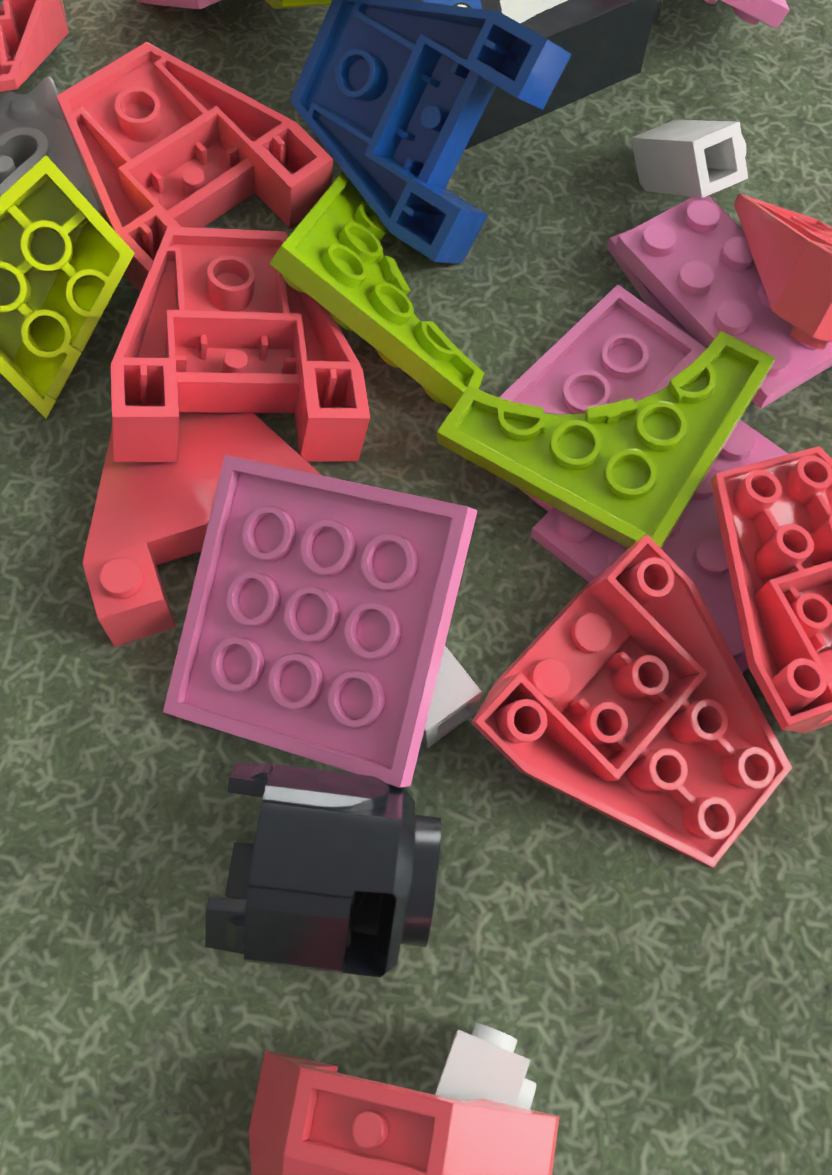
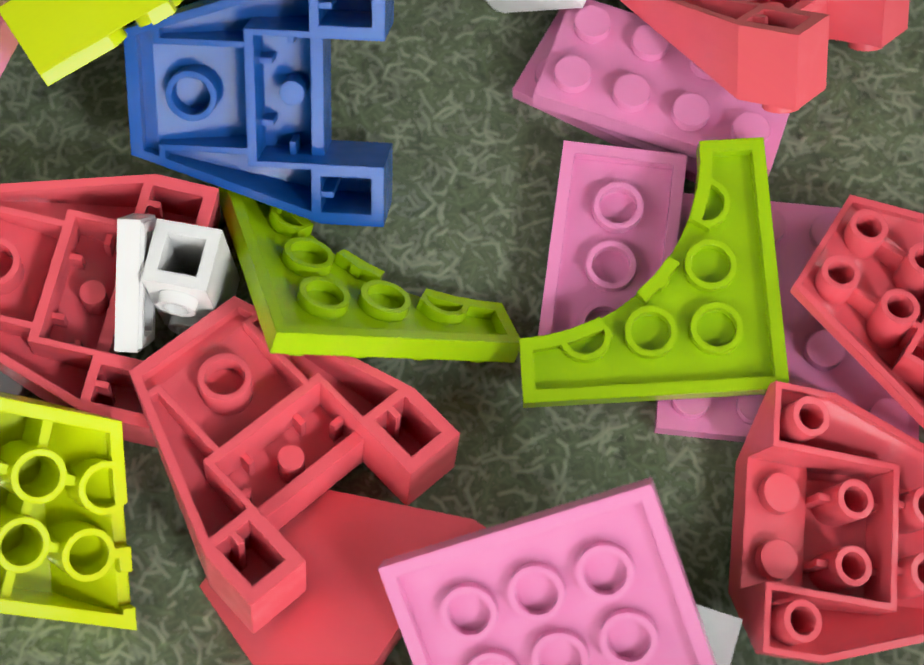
camera: 30 degrees left, 5 degrees up
(223, 174) = (132, 302): none -> white tile
(264, 188) = (188, 272): none -> white brick

